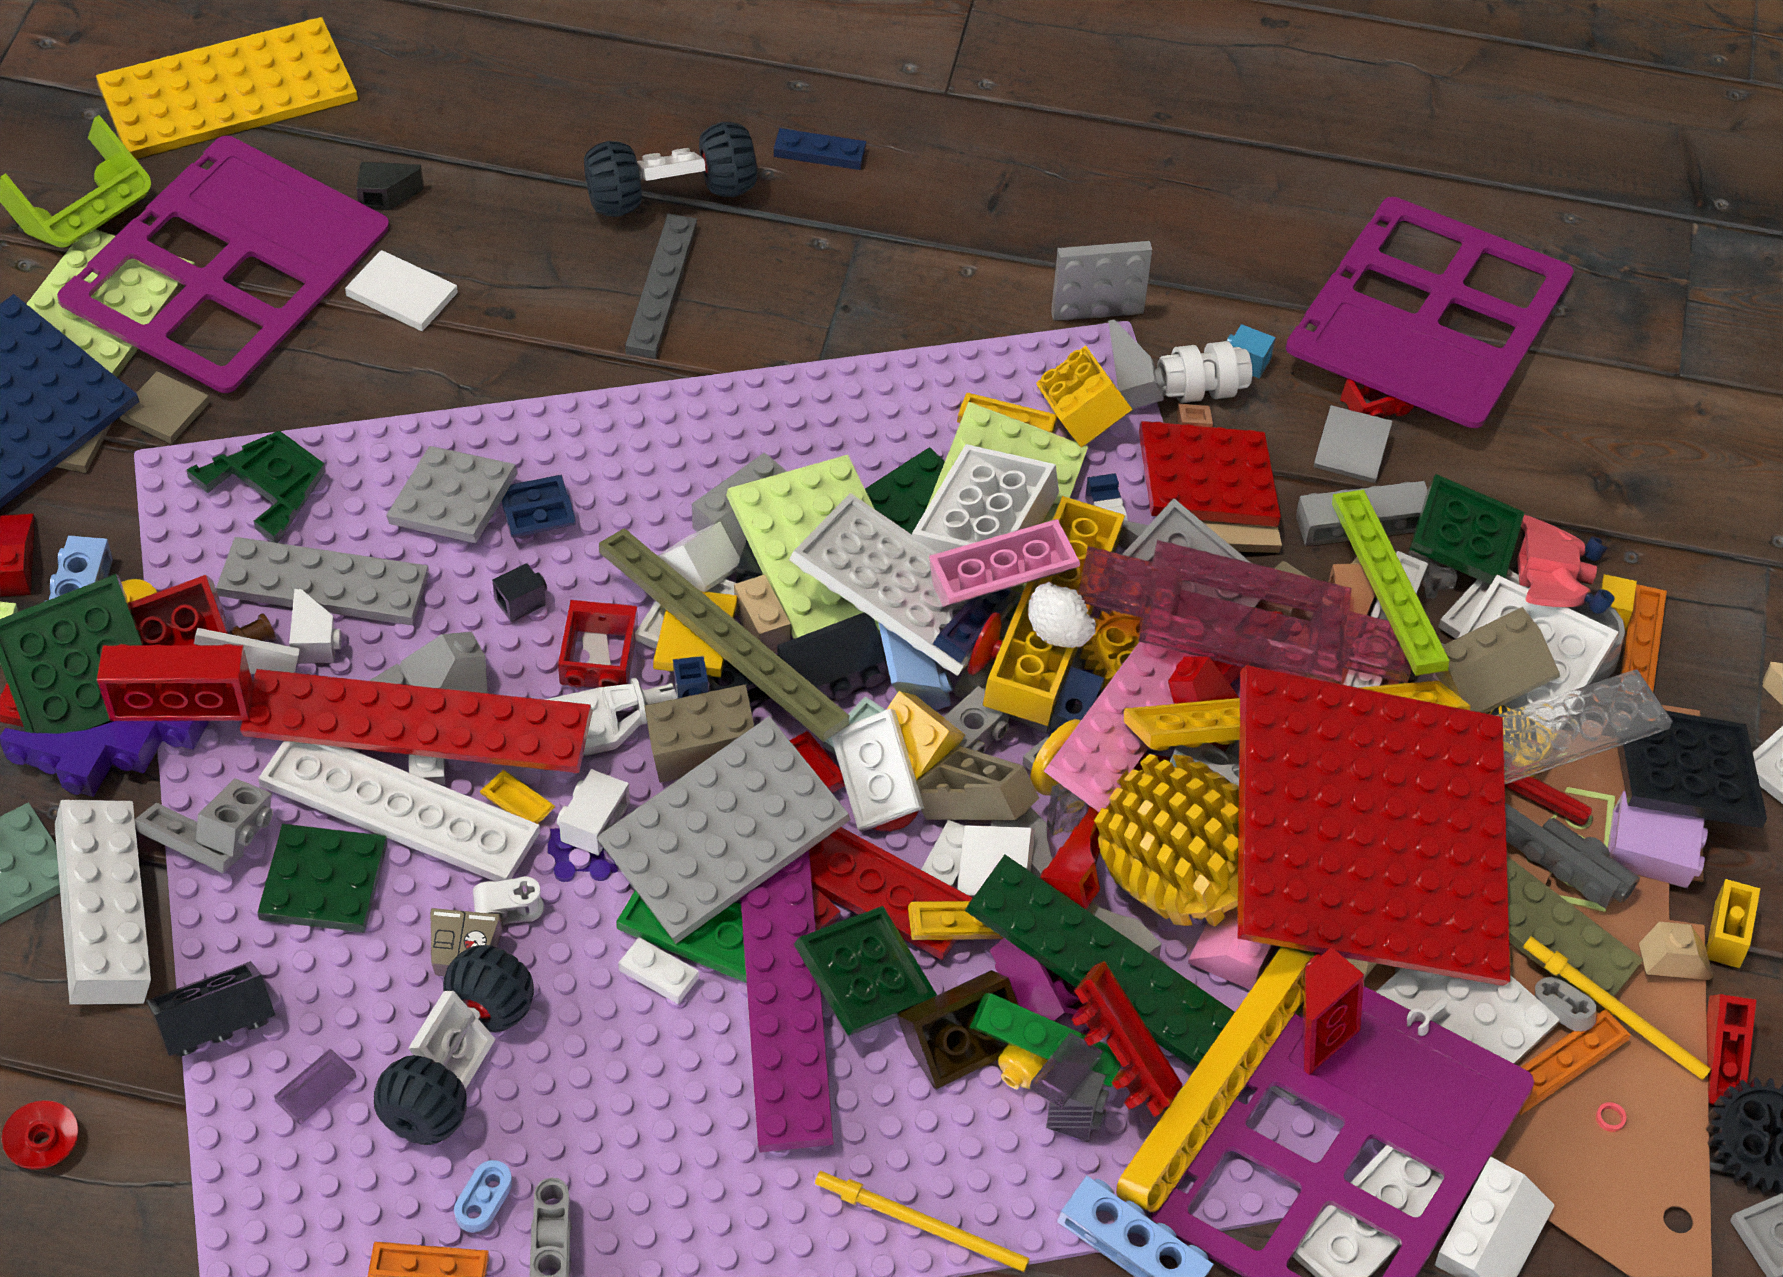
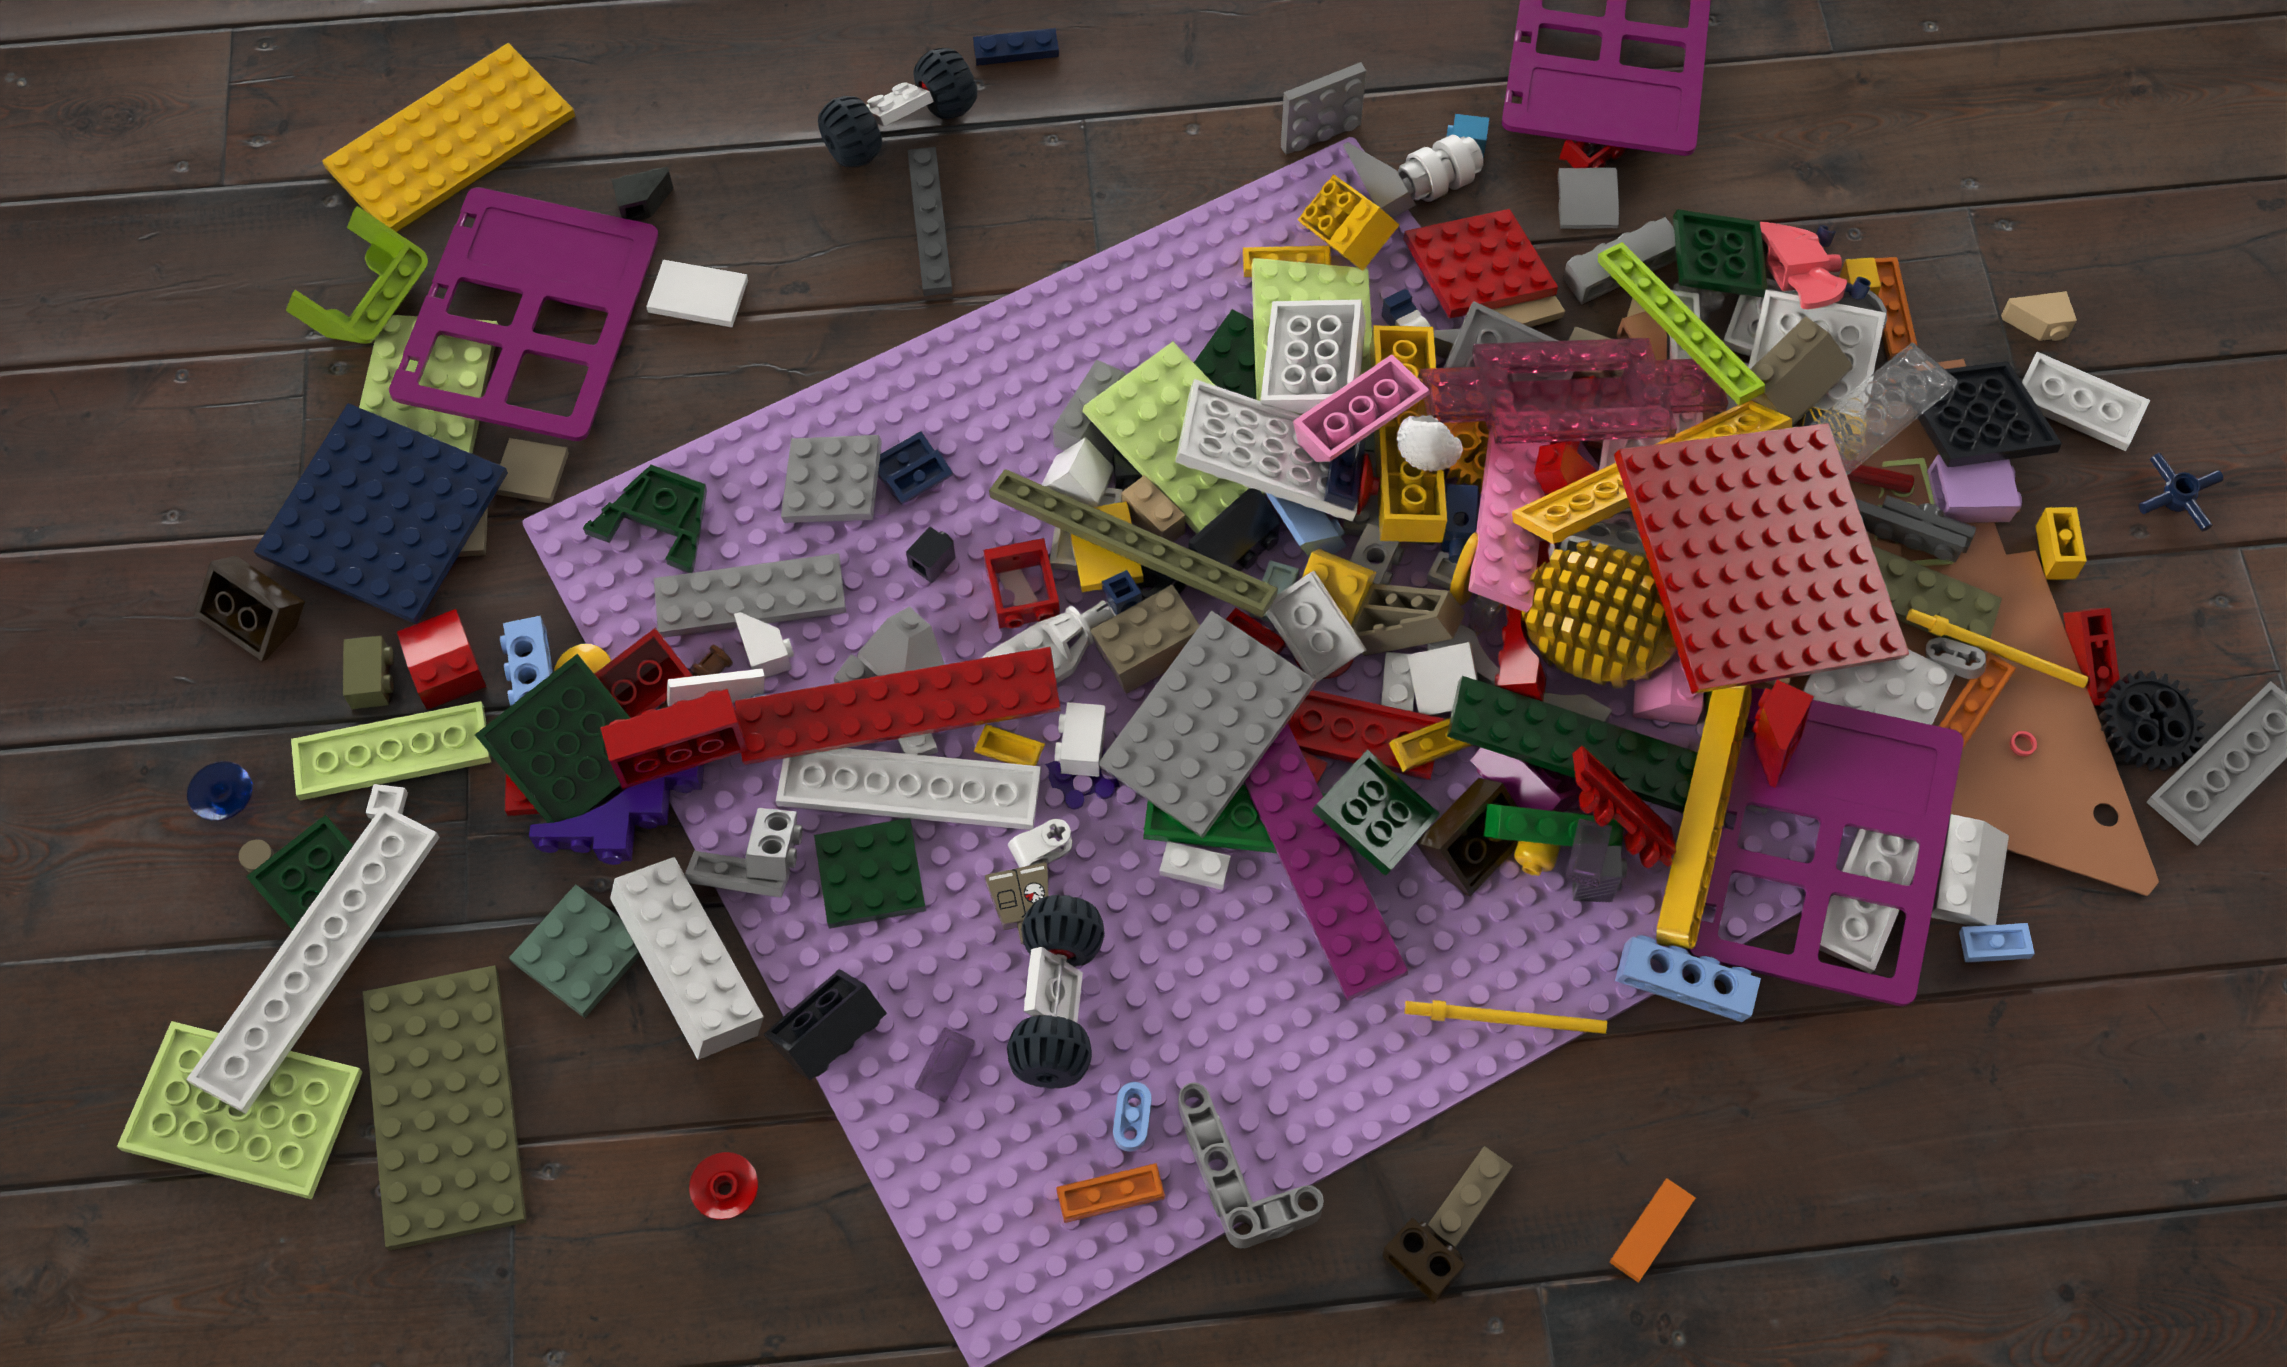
camera: 15 degrees left, 10 degrees up
(1194, 415) = (1445, 211): nougat plate -> none
(1425, 1015) = (1855, 706): white hand -> none
(1675, 952) = (2025, 585): tan slope -> none

